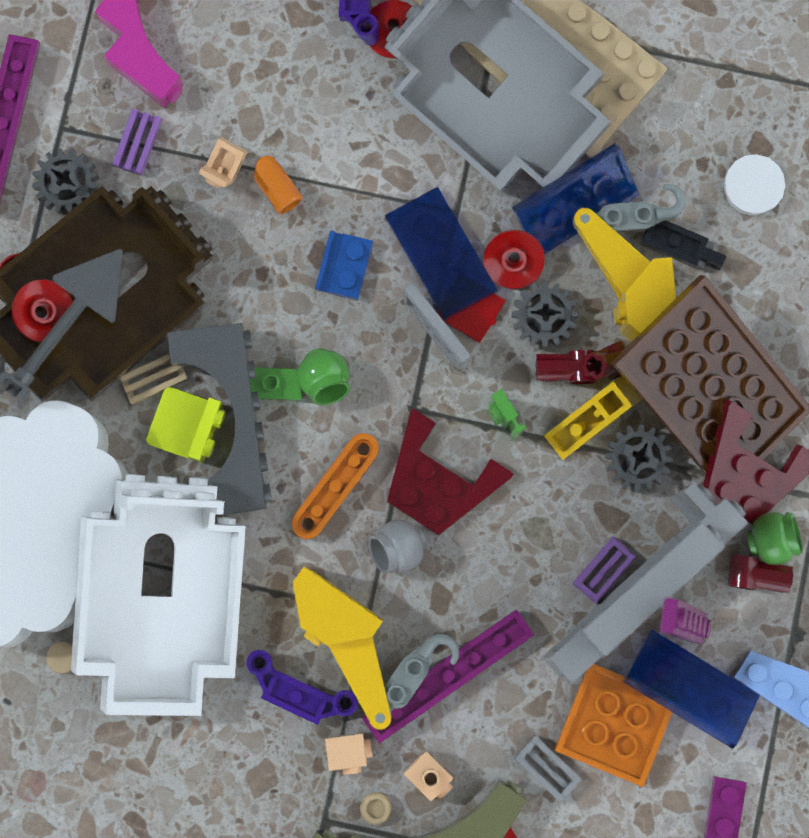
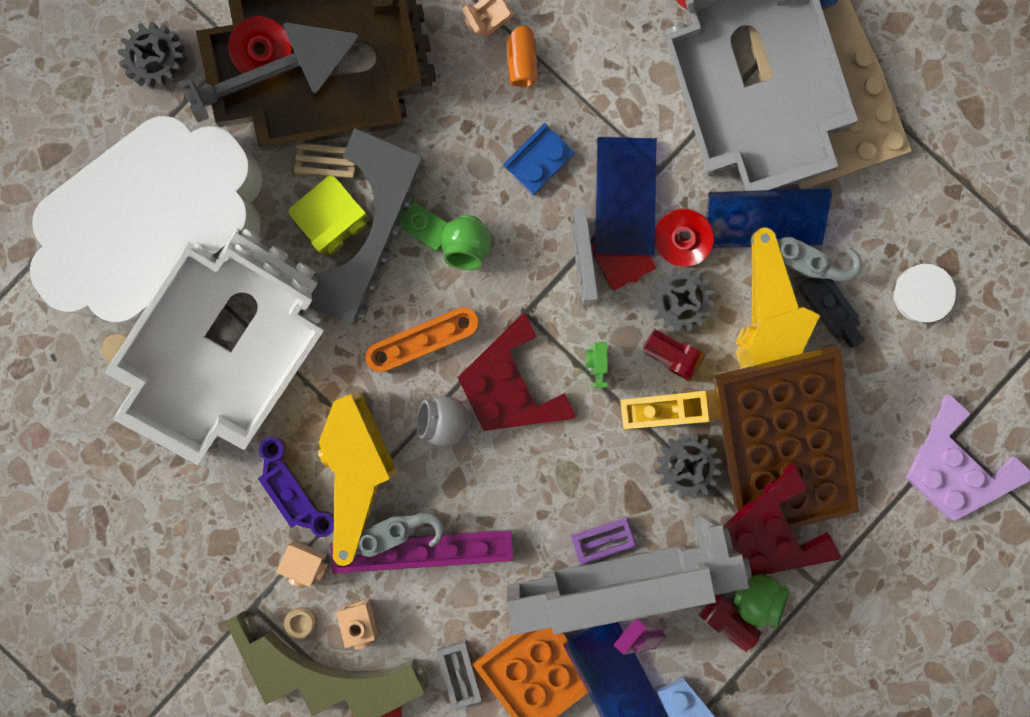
camera: 30 degrees right, 5 degrees up
(598, 363) = (703, 368): dark red piece -> none

